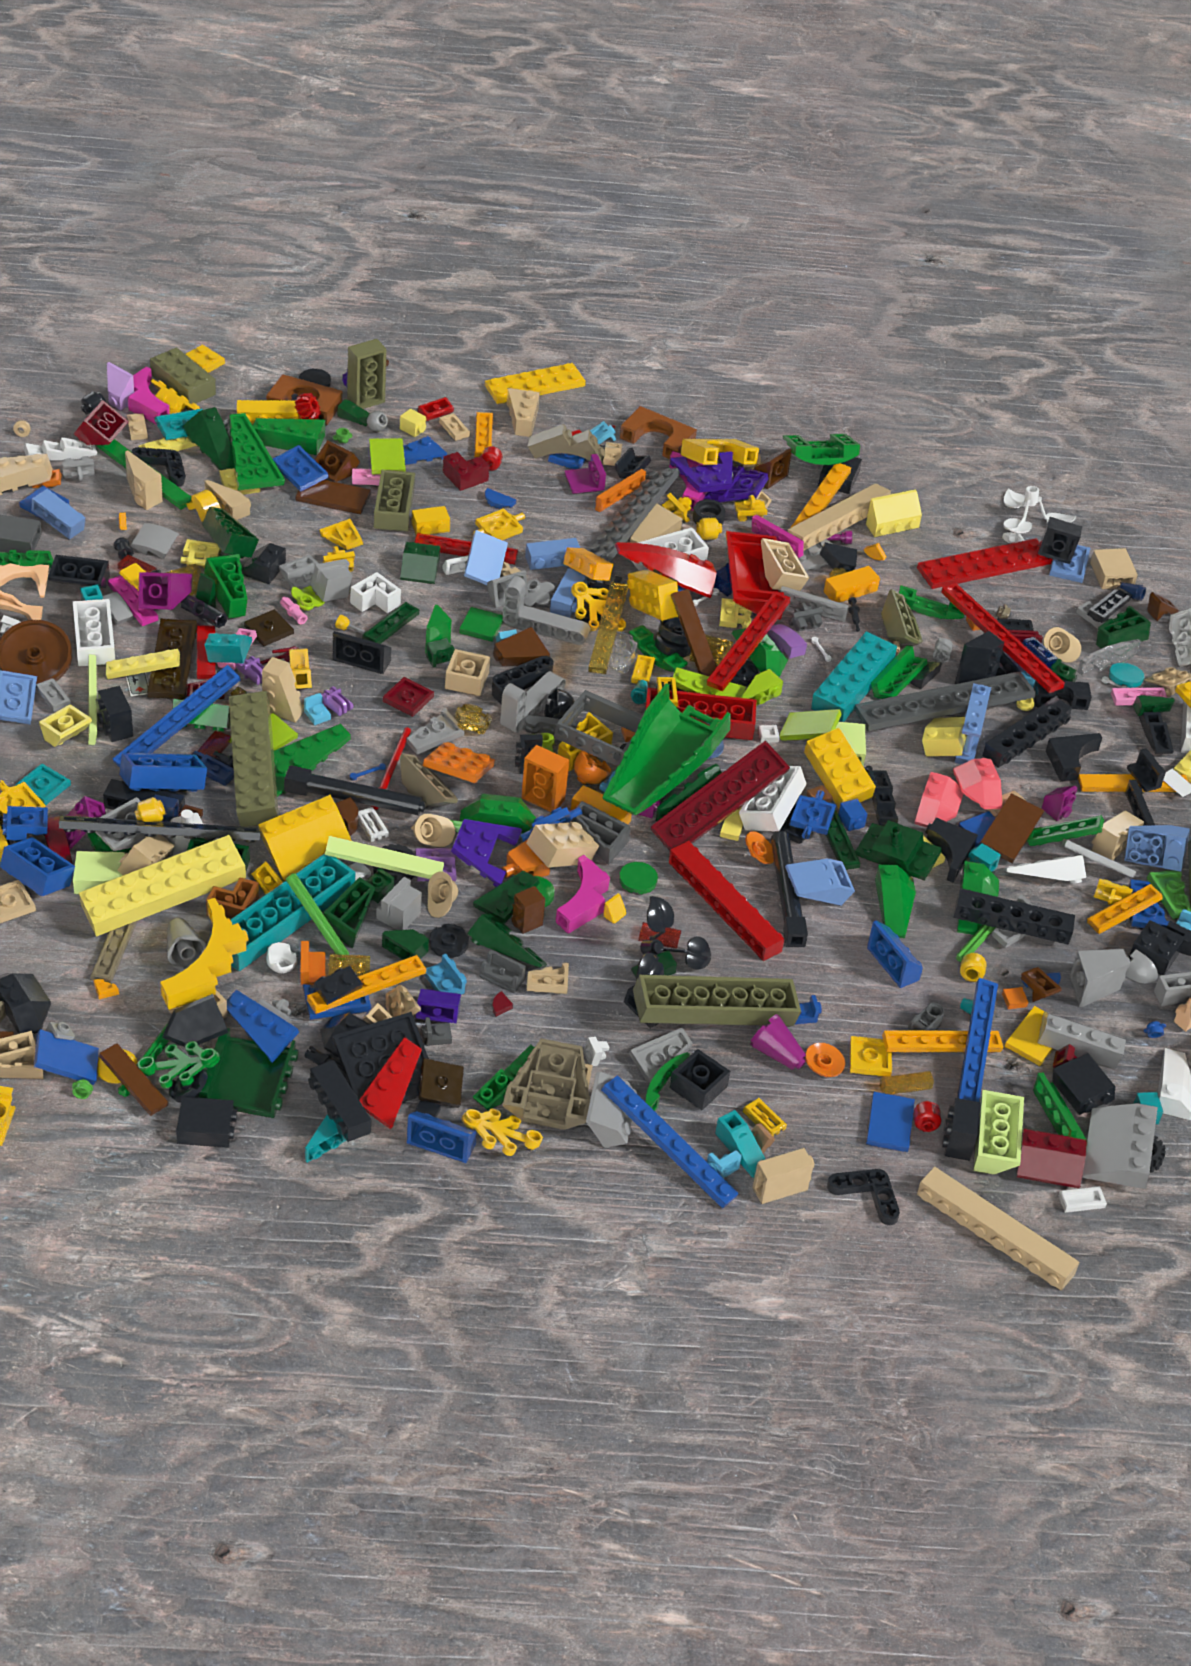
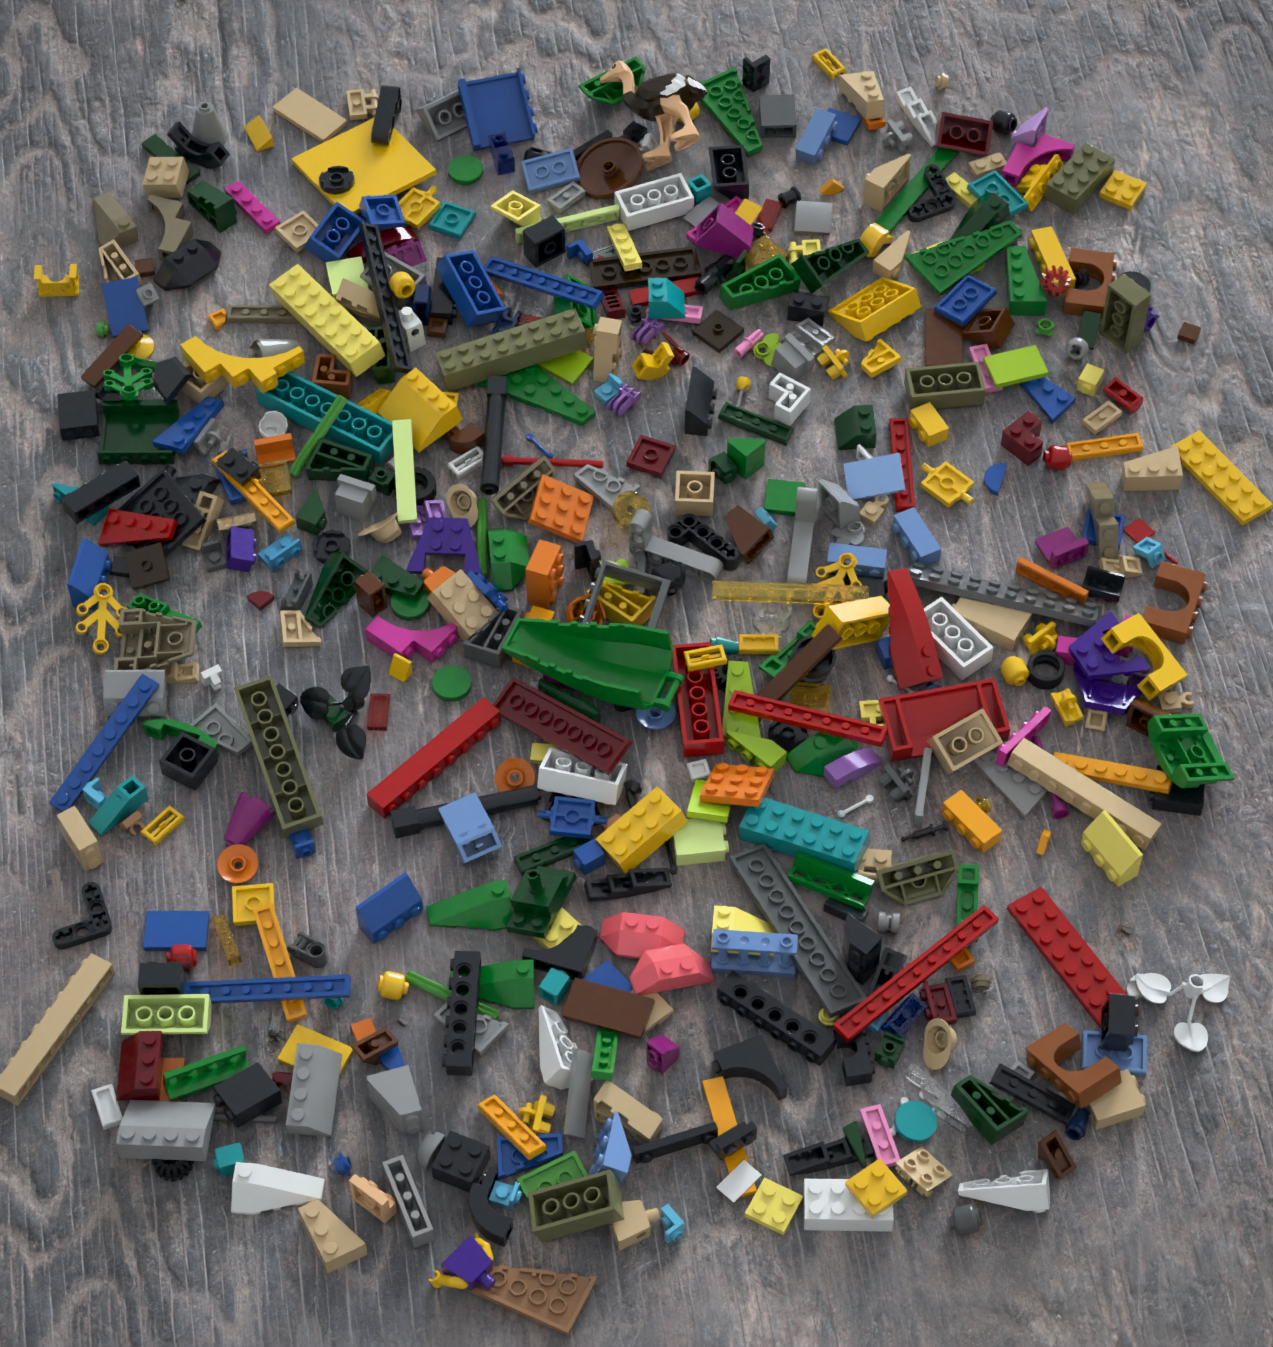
camera: 85 degrees right, 10 degrees up
(136, 694) = (580, 250): none -> blue bracket
(282, 522) = (876, 308): none -> yellow slope
(588, 563) = (900, 556): light orange brick -> none
(800, 703) = (737, 785): none -> orange plate
(839, 556) = (1008, 803): black slope -> none
(1079, 591) = (1078, 1086): none -> dark orange arch

